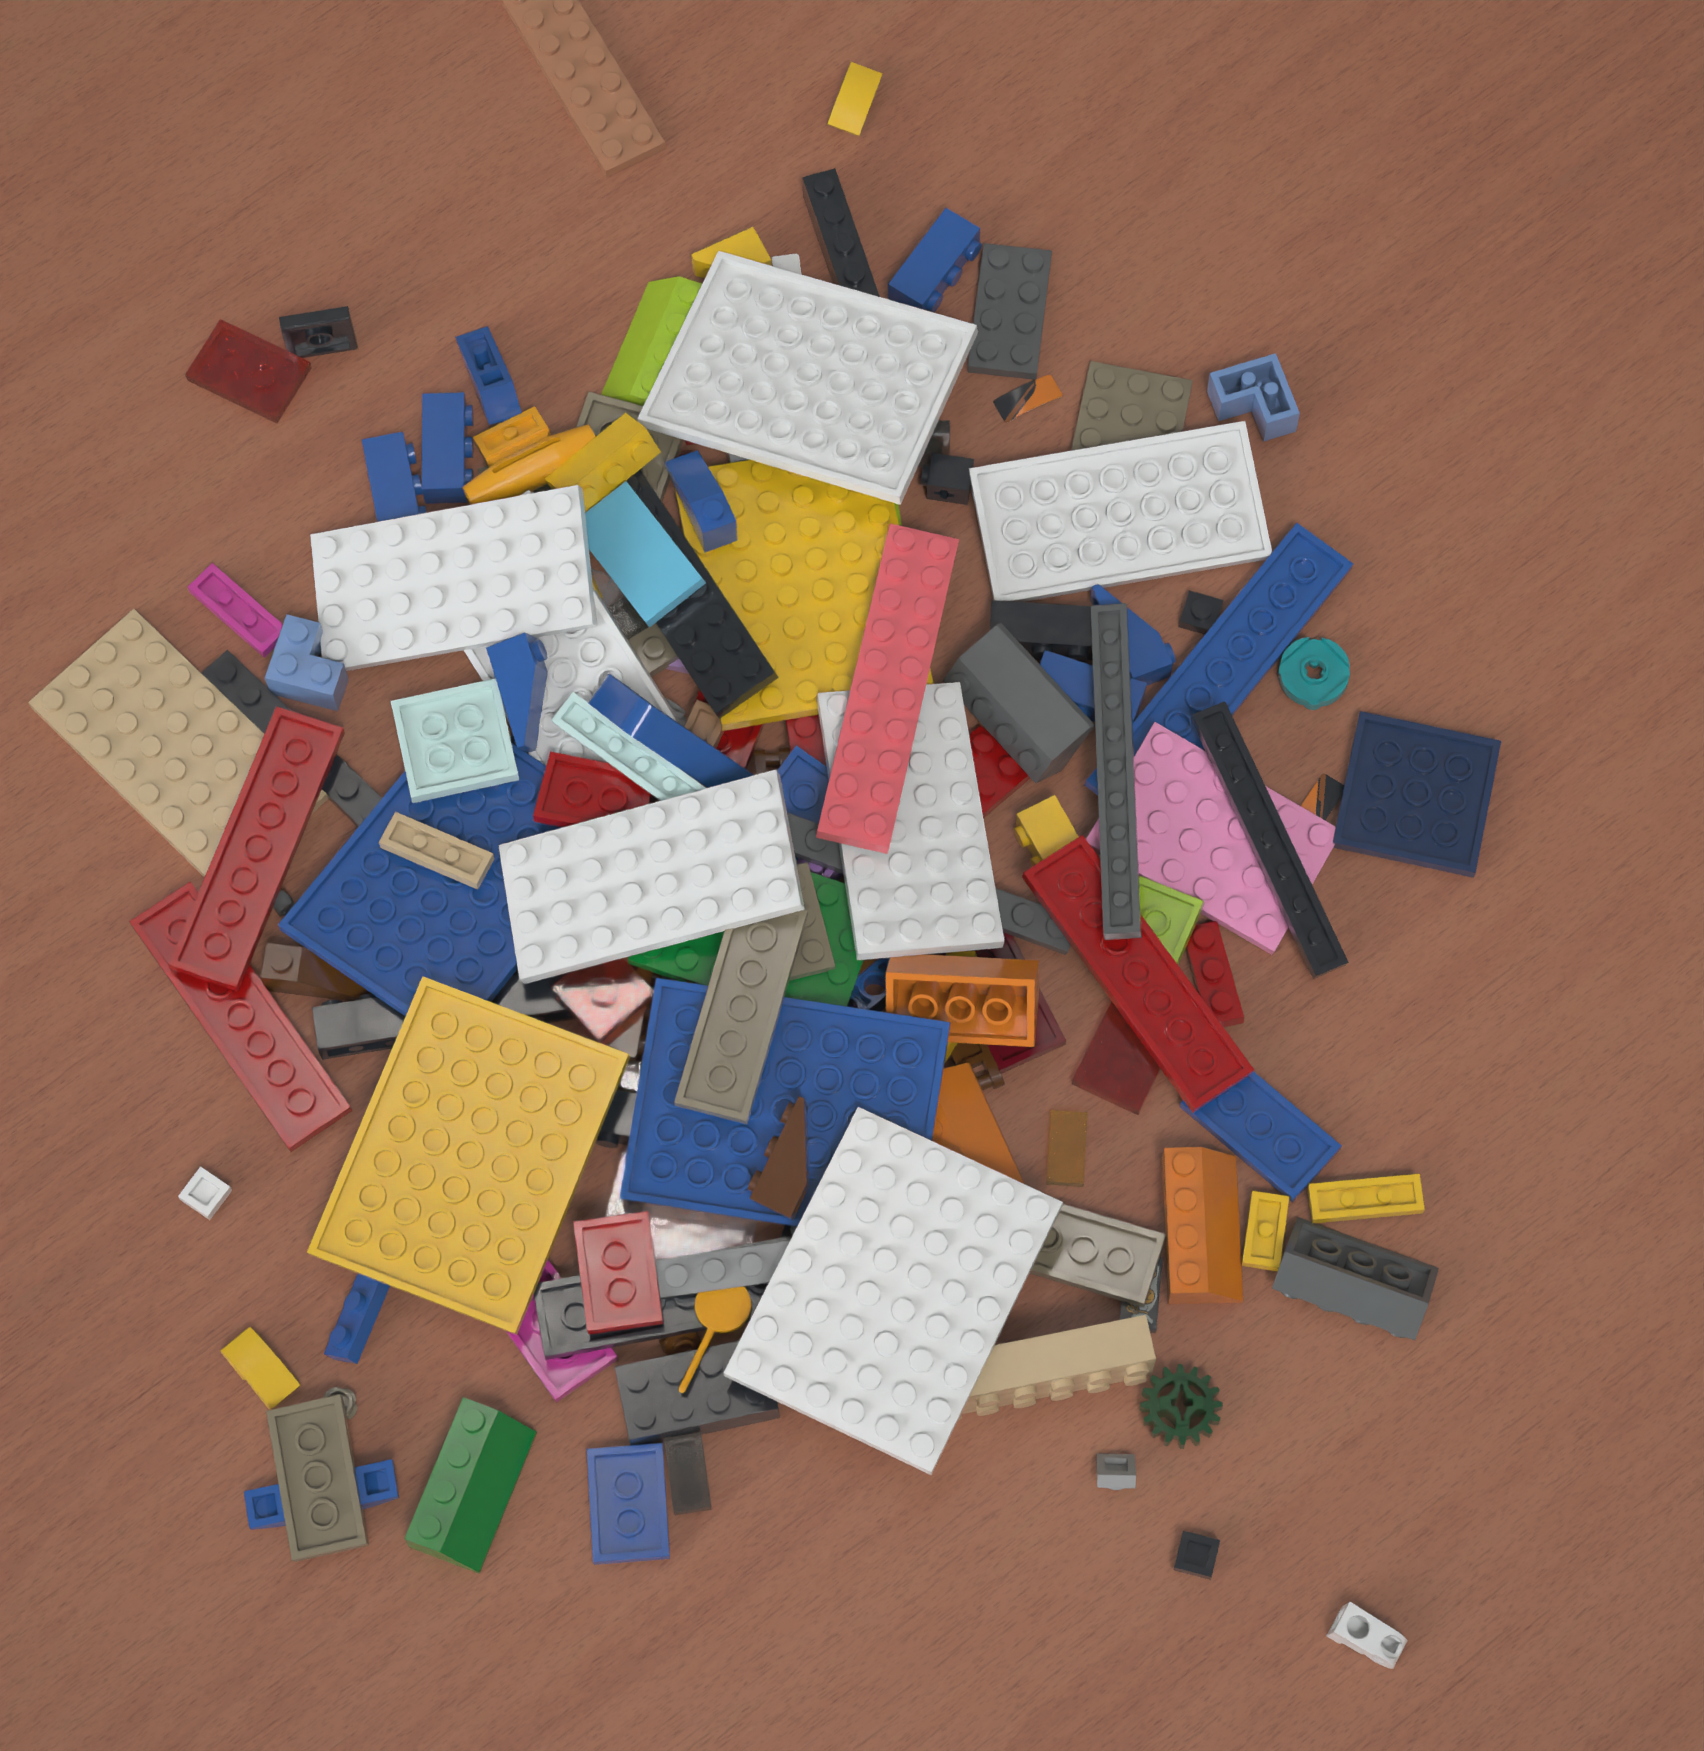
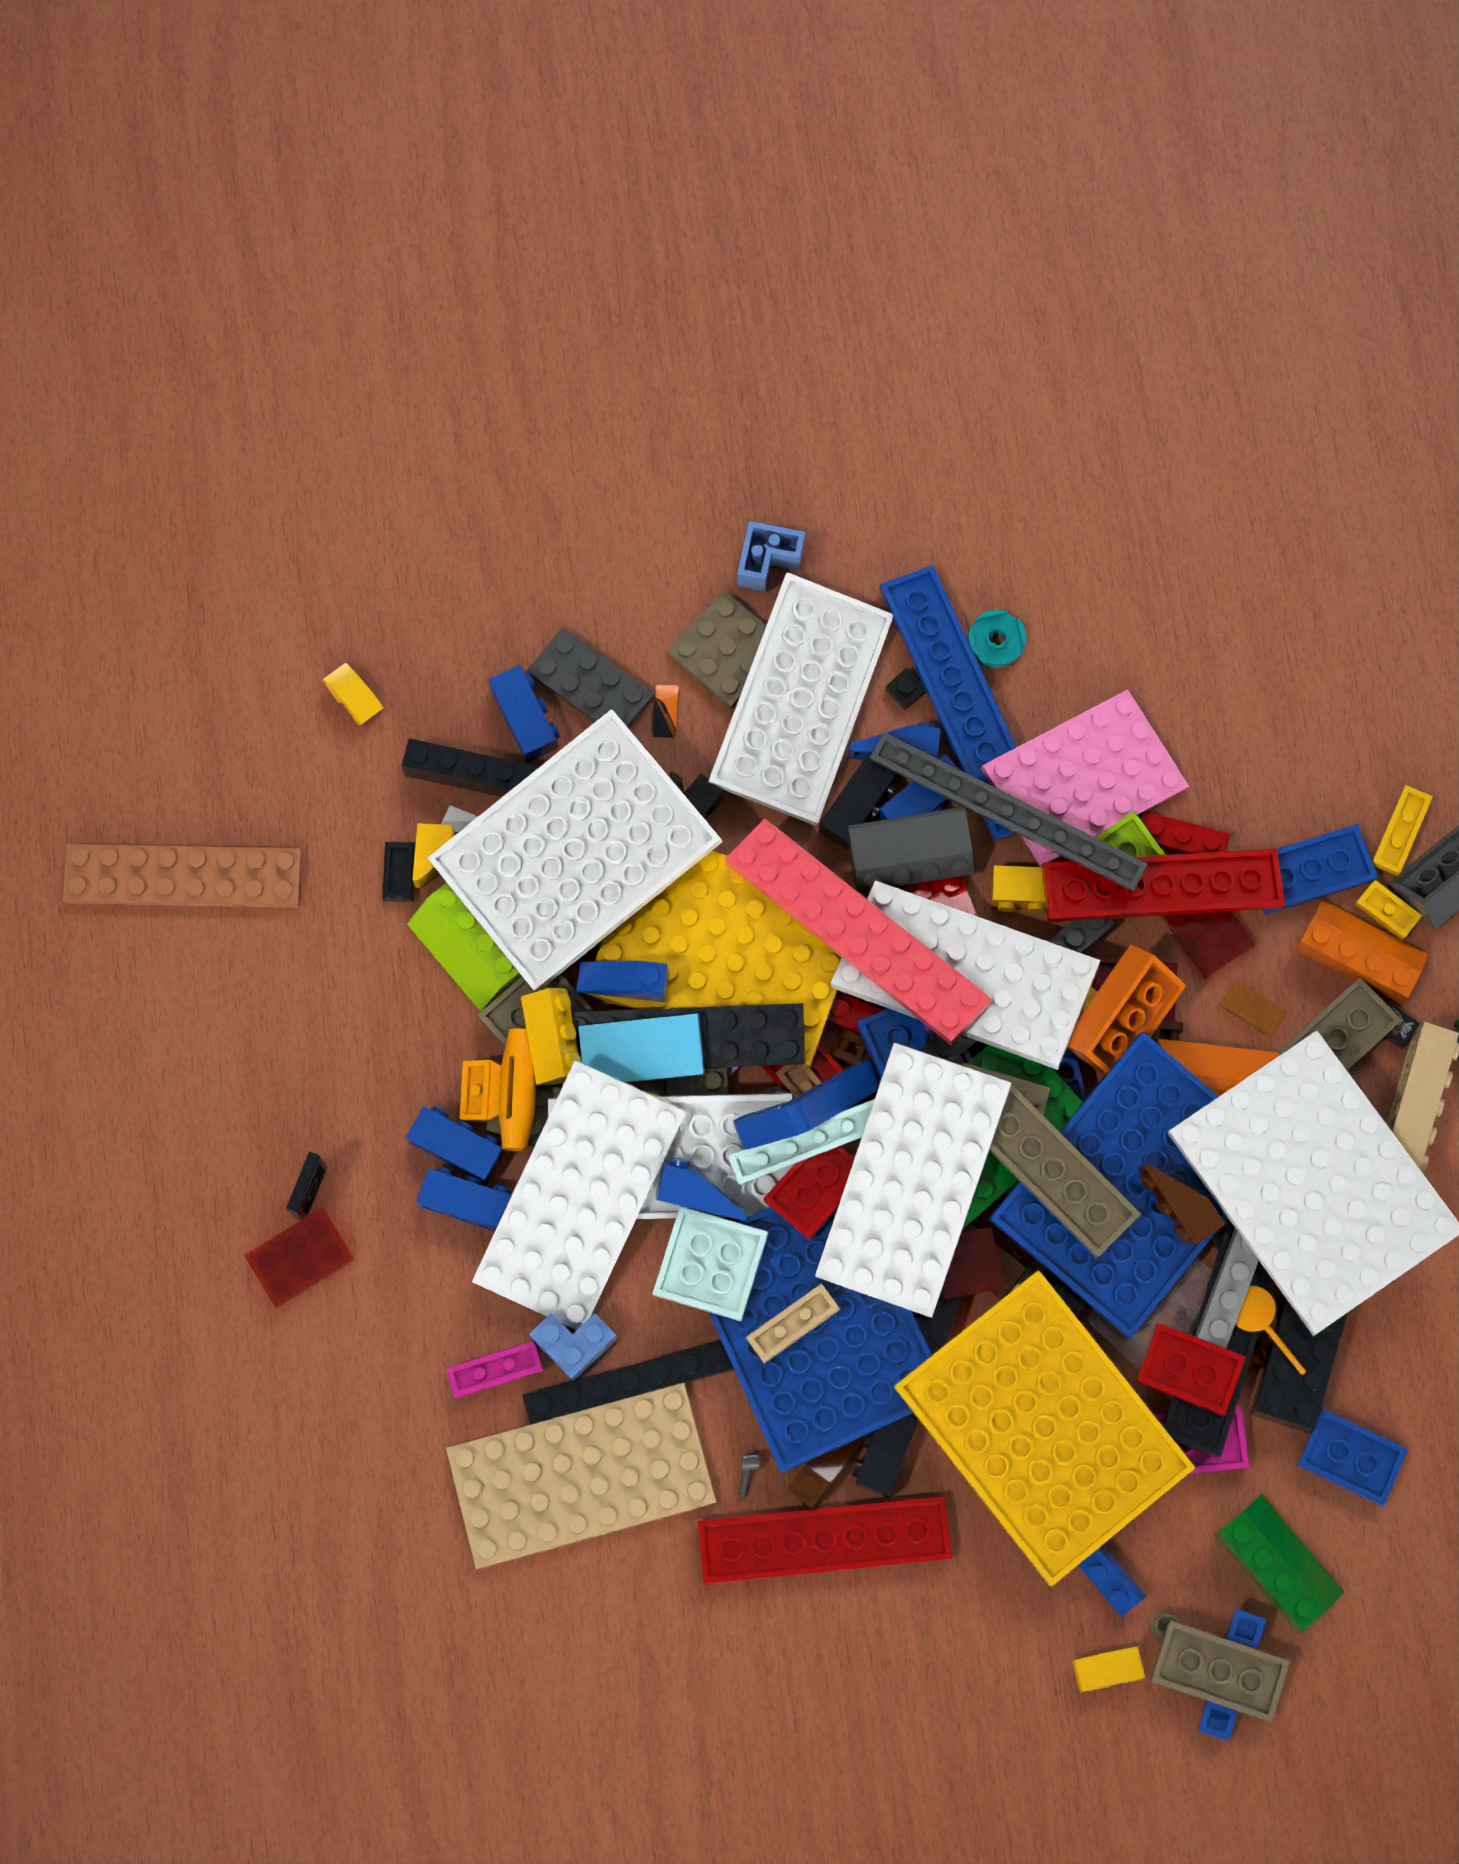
camera: 60 degrees left, 5 degrees up
(205, 1193) = (950, 1639): white plate -> none
(256, 849) = (704, 1456): red plate -> none
(489, 375) = (414, 1080): blue slope -> none
(679, 248) = (398, 872): none -> black tile
(687, 1473) = (1353, 1404): clear smoke plate -> none
(1269, 840) = (1114, 740): black plate -> none
(1323, 796) = (1091, 688): sticker -> none
(1416, 794) = (1127, 624): dark blue plate -> none

